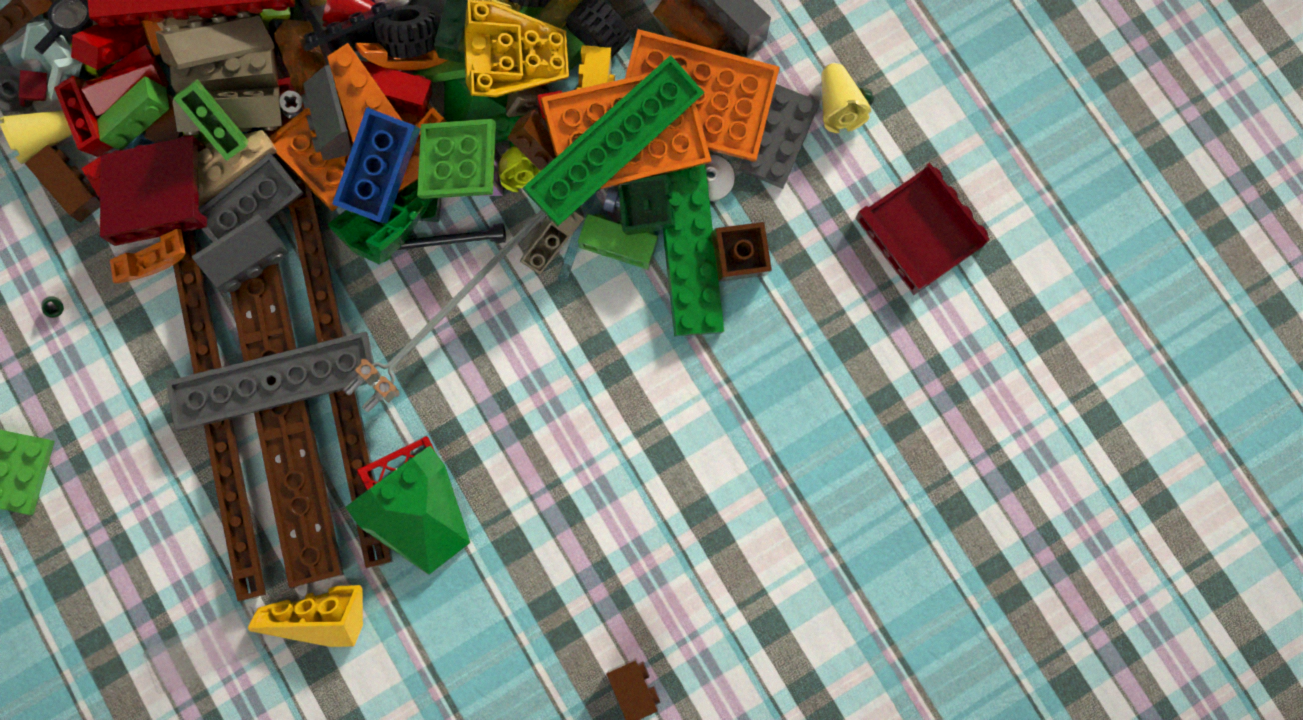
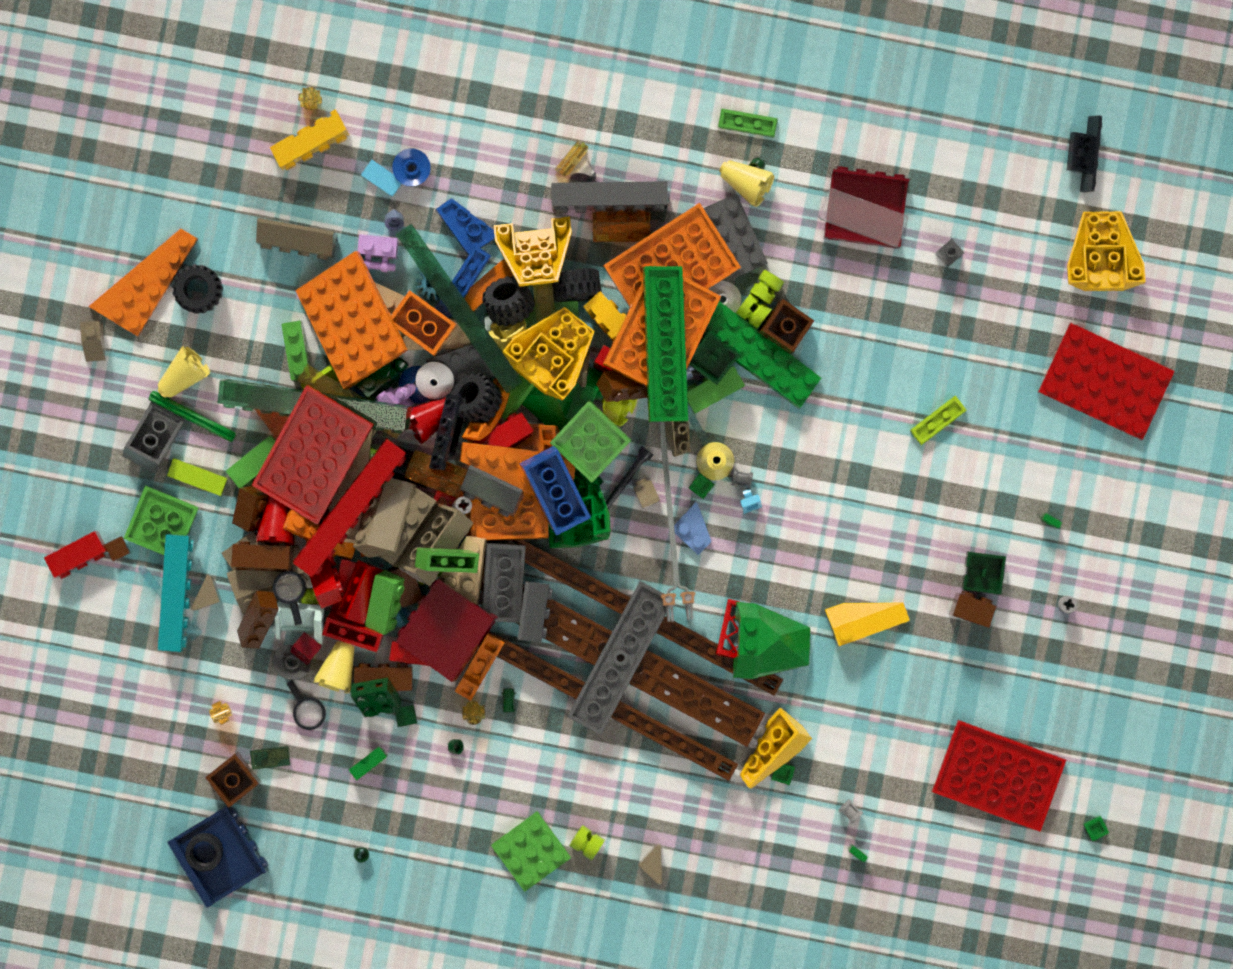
camera: 45 degrees left, 10 degrees up
(29, 190) = (375, 699): none -> dark green piece
(44, 235) = (406, 716): none -> dark green slope
(61, 522) = (586, 842): none -> lime wheel
(86, 603) = (652, 863): none -> dark tan slope
(99, 293) = (473, 712): none -> clear yellow gear
(142, 316) = (508, 699): none -> dark green pin
(296, 652) = (783, 774): none -> green tile
(458, 266) = (646, 493): none -> dark tan slope
(465, 342) = (693, 530): none -> medium blue wing
(515, 313) = (701, 486): none -> green tile
(522, 586) = (859, 620): none -> yellow wedge
(541, 371) = (750, 502): none -> medium azure tile
(551, 304) = (706, 465): none -> light yellow cone
(557, 343) = (742, 478): none -> dark grey bush
(681, 667) = (984, 572): none -> dark green piece
(726, 208) = (760, 313): none -> lime wheel
(769, 201) = (767, 287): none -> lime wheel
(789, 481) = (938, 420): none -> lime tile
(796, 687) = (1053, 522): none -> green tile
(892, 57) = (747, 123): none -> bright green tile
(912, 231) = (863, 217): none -> clear piece
(958, 342) = (949, 252): none -> dark grey brick
(985, 614) = (1106, 381): none -> red plate
(1103, 495) = (1104, 254): none -> yellow wedge
(1176, 384) = (1084, 153): none -> black bracket

